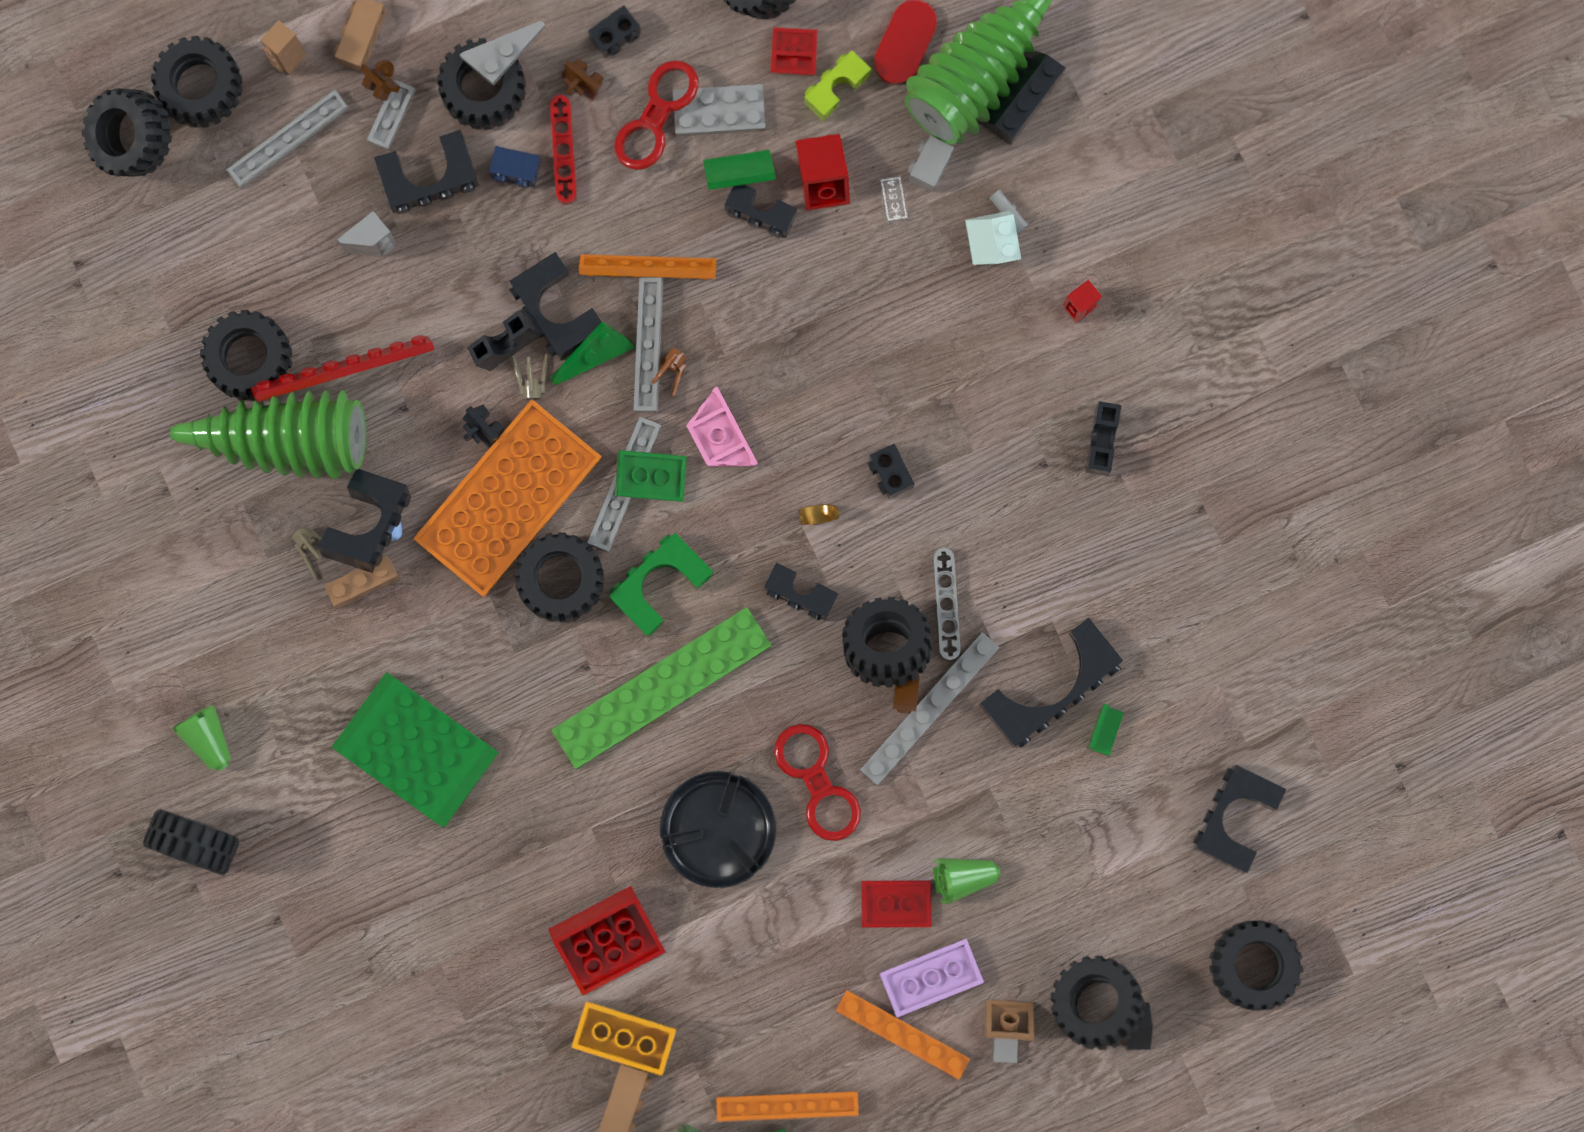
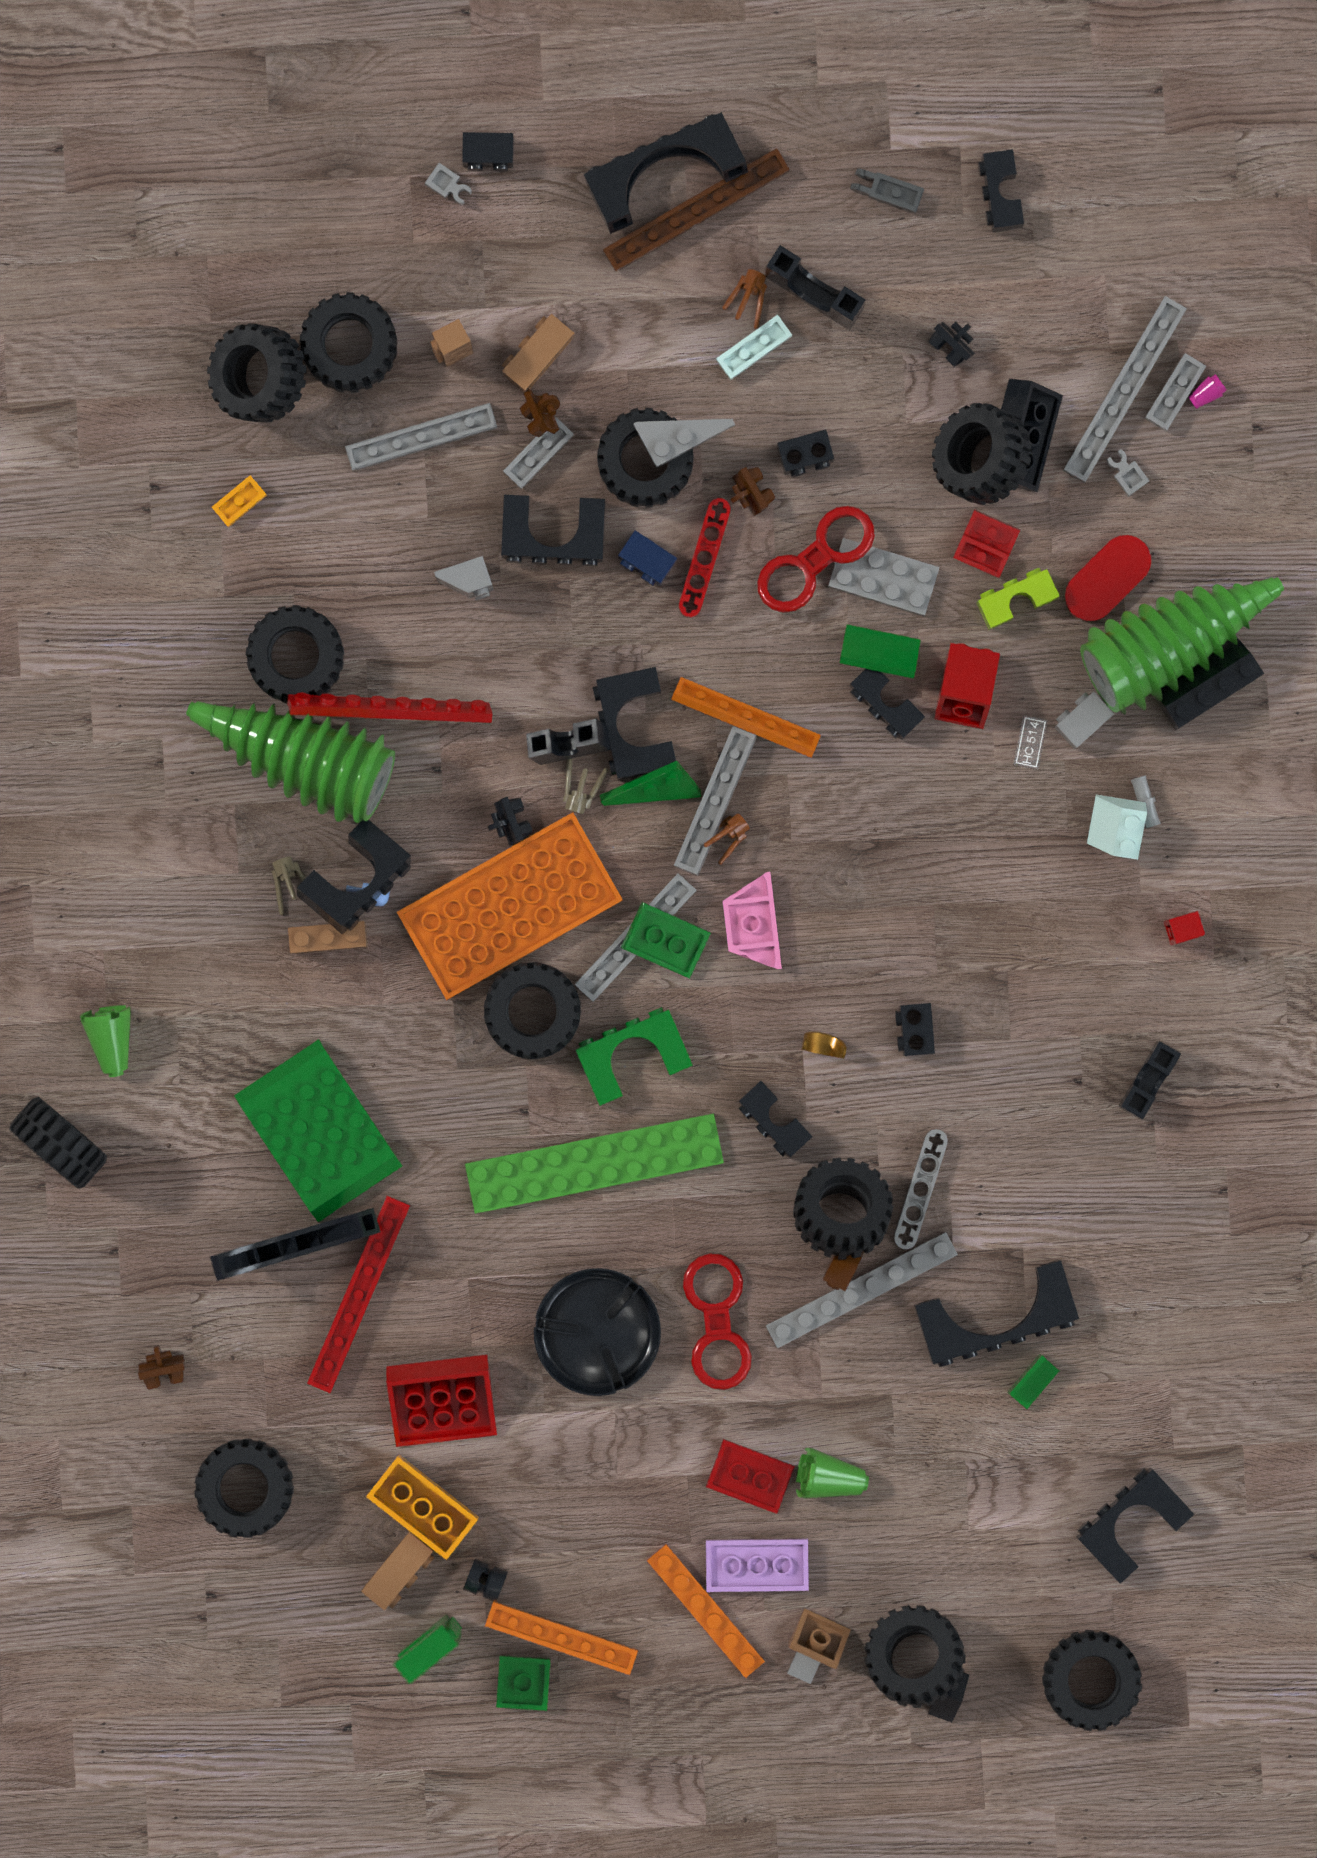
camera: 20 degrees right, 5 degrees up
(153, 247) = (239, 501): none -> light orange plate
(352, 1001) = (161, 1364): none -> reddish brown hips
(429, 853) = (295, 1244): none -> black arch
(431, 1081) = (210, 1498): none -> black tyre
(501, 876) = (358, 1295): none -> red plate
(711, 1081) = (493, 1585): none -> black wheel

